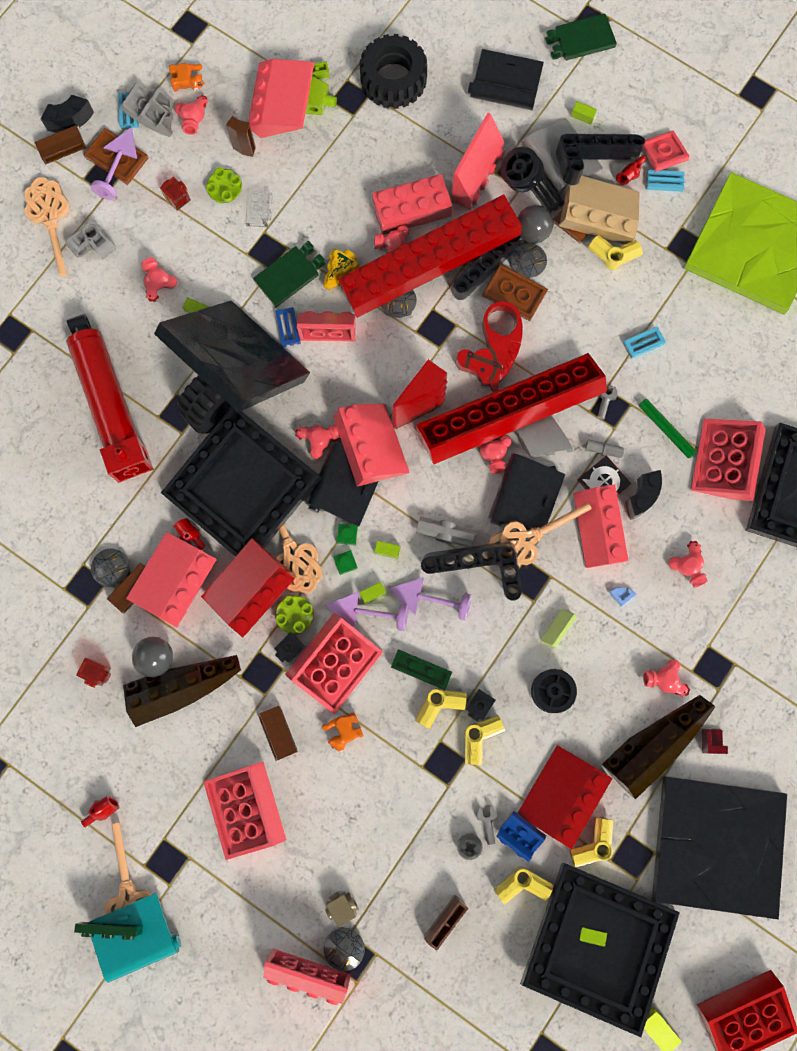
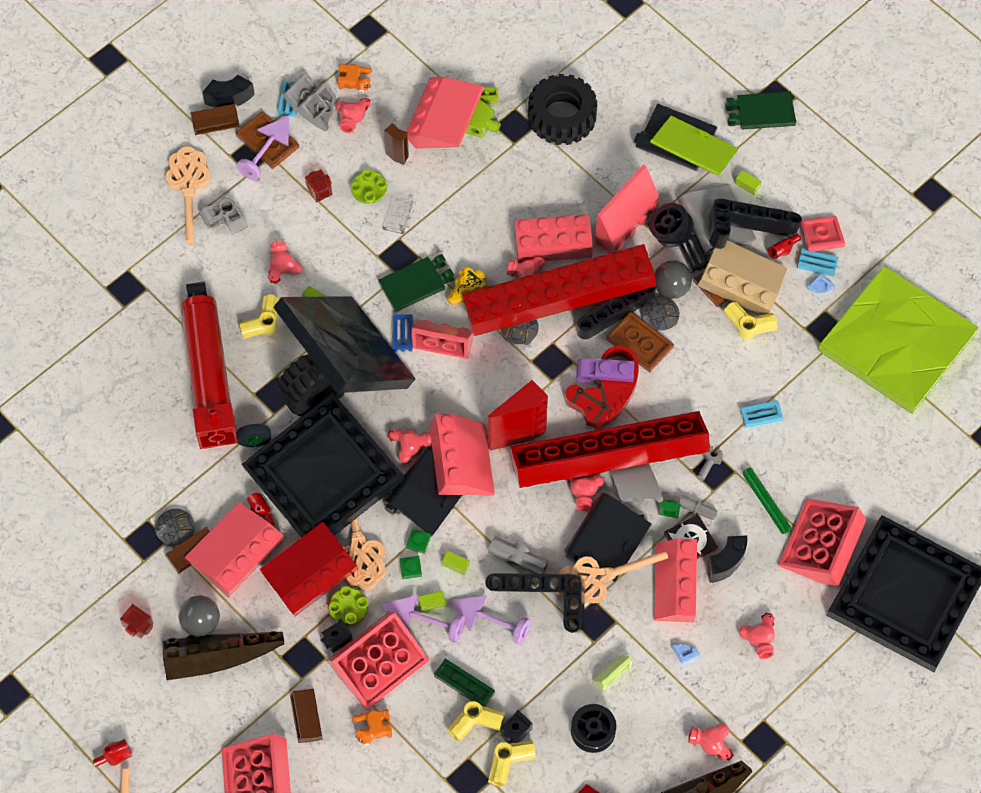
camera: 10 degrees right, 15 degrees down
(145, 348) = (257, 325): none -> light yellow piece
(166, 461) = (253, 435): none -> black wheel
(490, 329) = (604, 370): none -> medium lavender plate
(527, 84) = (694, 145): none -> lime container
(579, 455) = (669, 509): none -> green plate
(673, 202) = (820, 285): none -> light blue tile

